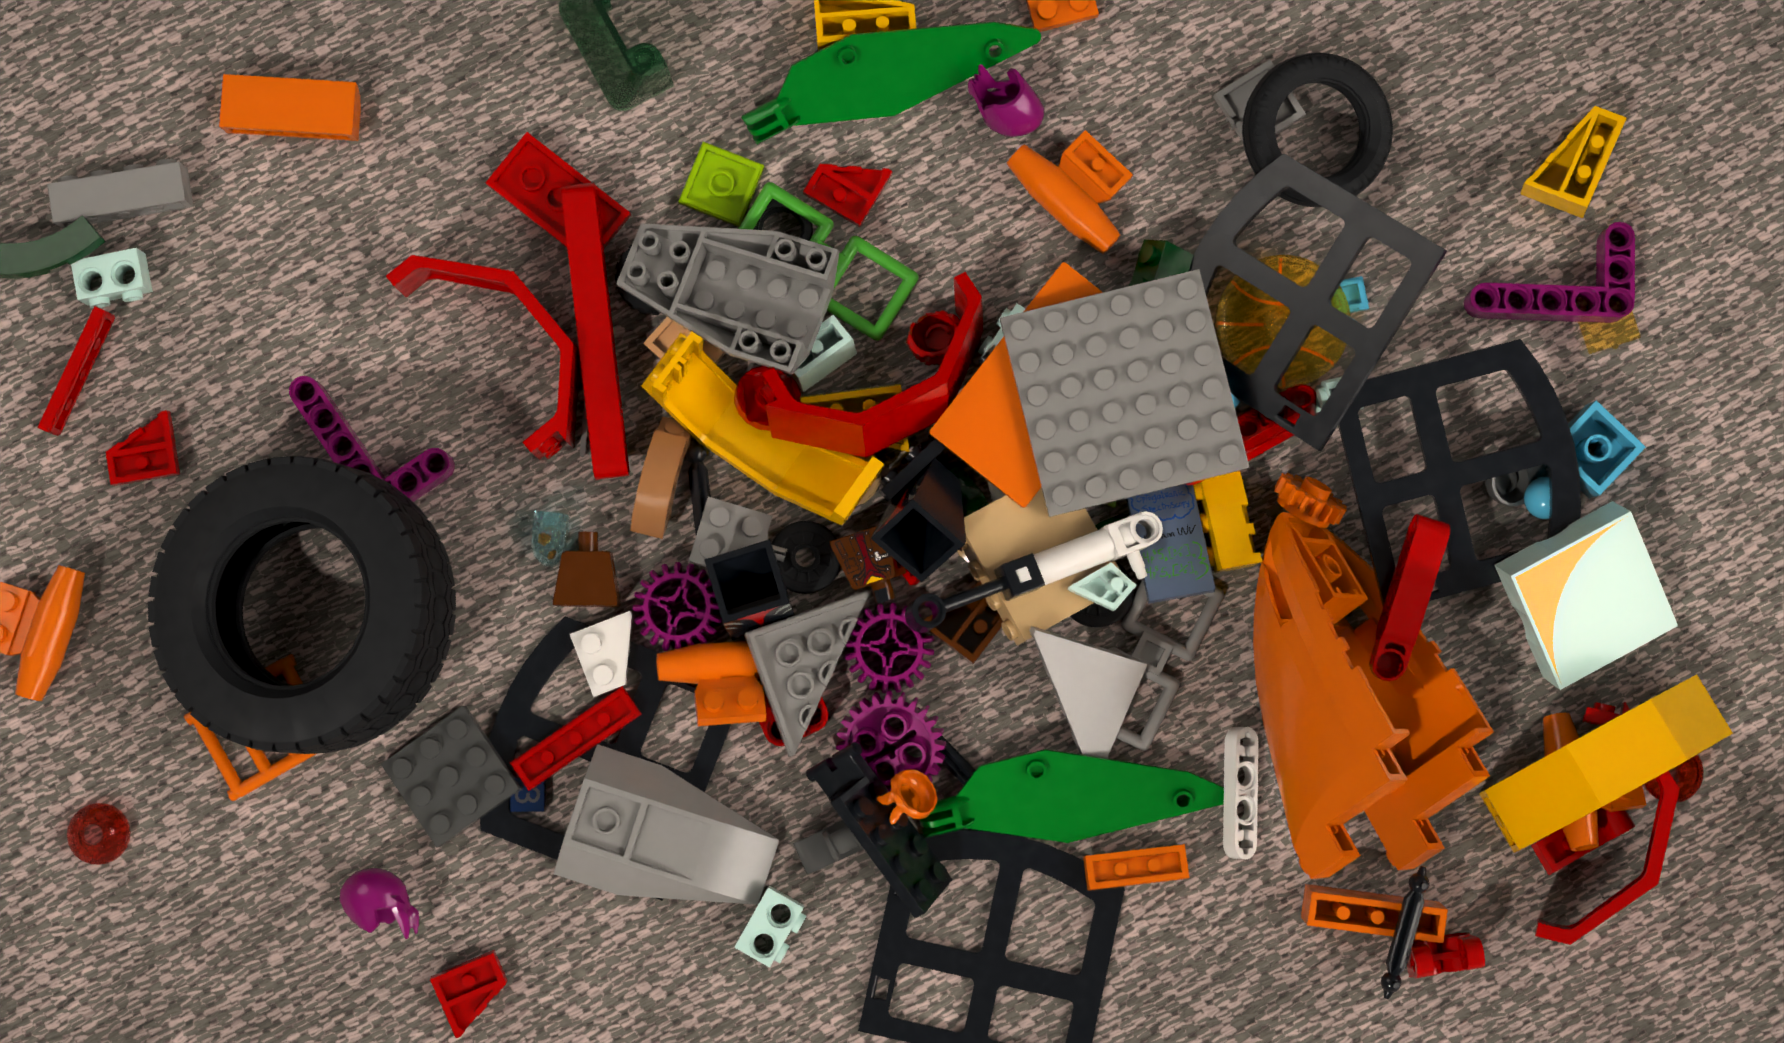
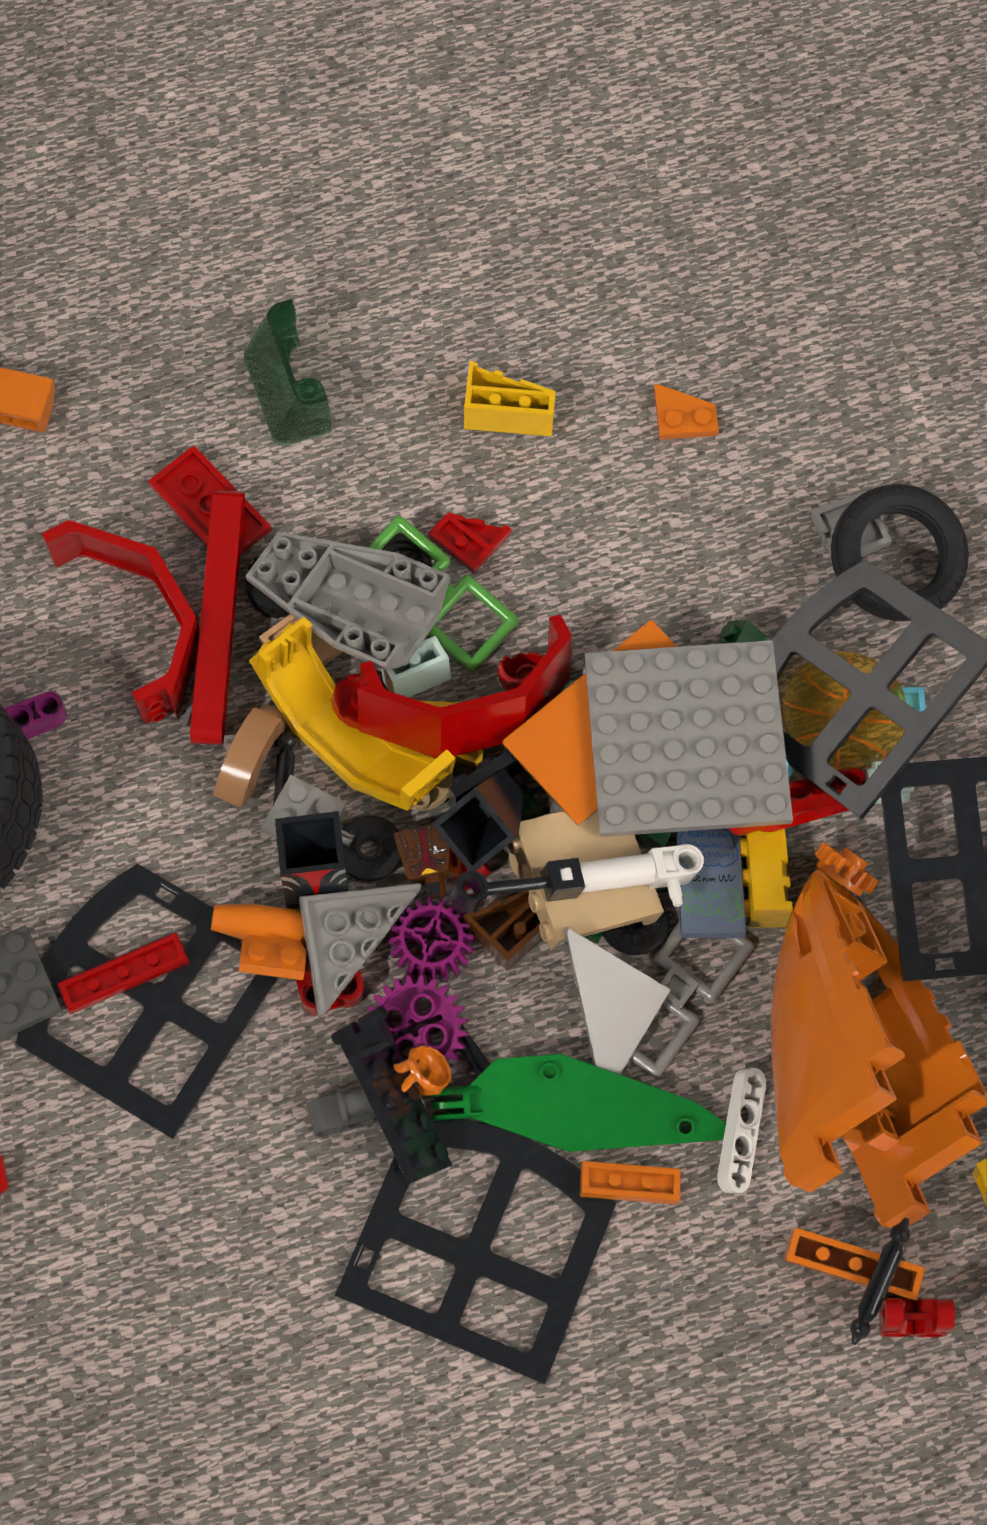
camera: 10 degrees right, 15 degrees down
(529, 800) = (66, 1023): dark blue tile -> none
(549, 536) = (139, 789): clear light blue rock -> none
(587, 576) = (164, 830): reddish brown torso -> none
(605, 652) = (166, 900): white wing -> none
(652, 599) = (232, 864): magenta gear -> none
(660, 837) = (182, 1076): light grey wedge -> none
(721, 184) = (356, 516): lime tile -> none
(764, 923) = (262, 1173): light aqua brick -> none
(884, 73) = (519, 445): green wing -> none
(1011, 108) = (630, 493): magenta helmet -> none
(1075, 187) = (674, 569): orange plate -> none
(1104, 587) = (641, 907): light aqua piece -> none
(1408, 596) = (925, 966): red piece -> none

